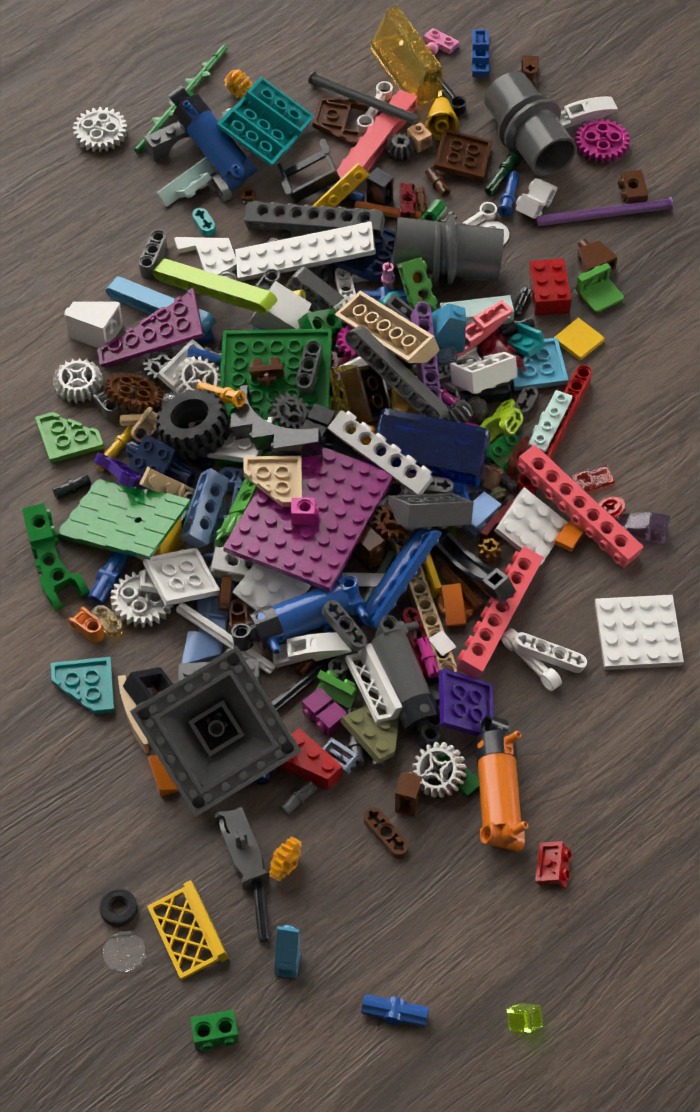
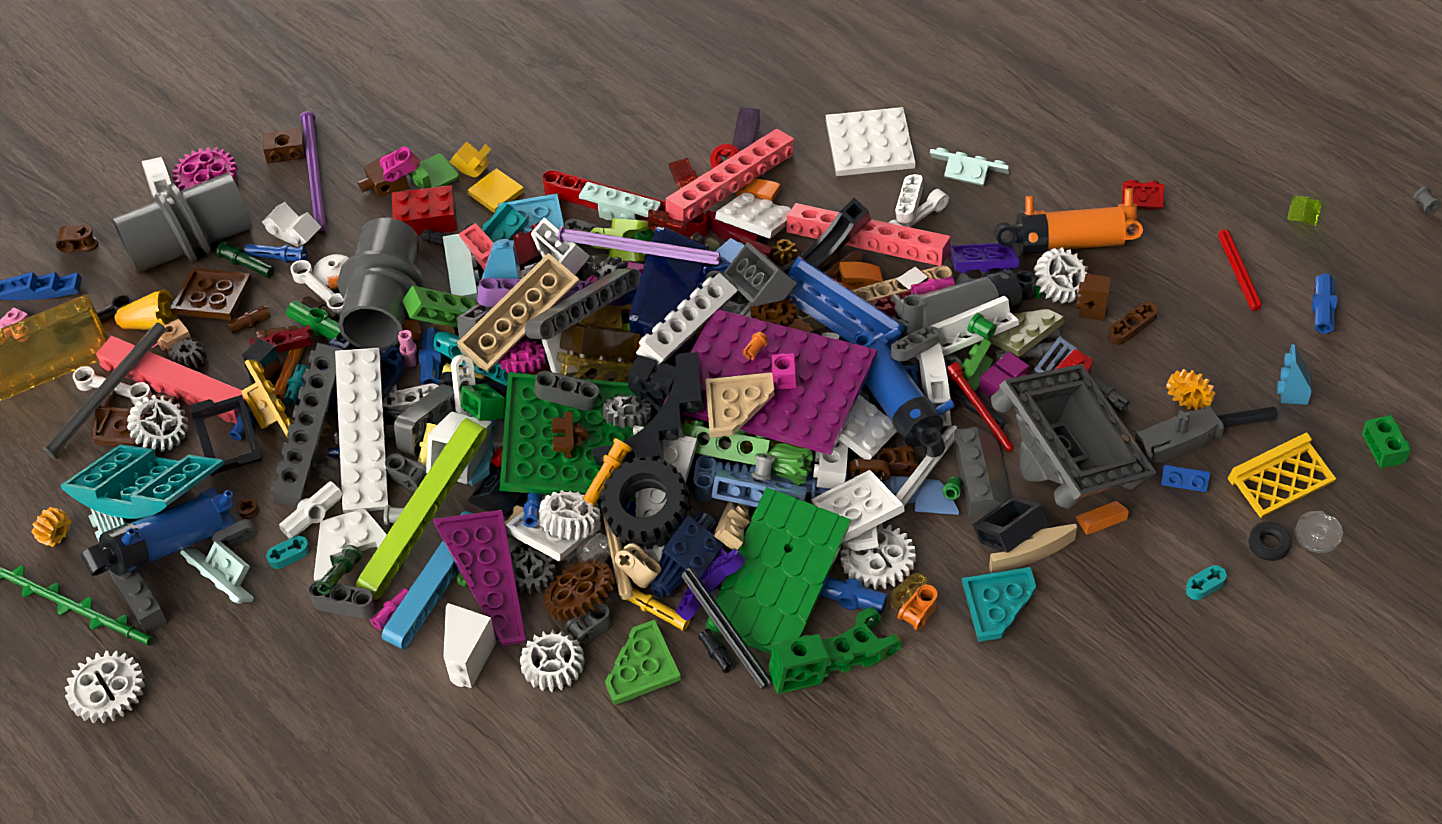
camera: 90 degrees left, 5 degrees down
(84, 478) = (726, 628): none -> black axle
(86, 845) = (1208, 586): none -> teal beam
(141, 281) = (386, 613): none -> dark pink pin
(180, 250) = (341, 565): none -> dark green pin
(193, 854) = (1185, 478): none -> blue hinge
(200, 656) = (952, 488): none -> green pin
(223, 507) = (763, 467): none -> light grey bush
(235, 229) = (320, 502): none -> white piece
(319, 664) = (956, 373): none -> red piece
(333, 129) = (158, 407): none -> white gear
(340, 495) = (758, 341): none -> orange pin
(365, 684) = (981, 326): none -> green bush
(449, 941) = (1240, 270): none -> red axle
(480, 364) = (639, 246): none -> axle
(591, 259) = (399, 162): none -> dark pink piece
(597, 710) = (967, 168): none -> light aqua bracket
(611, 317) = (471, 161): none -> yellow brick

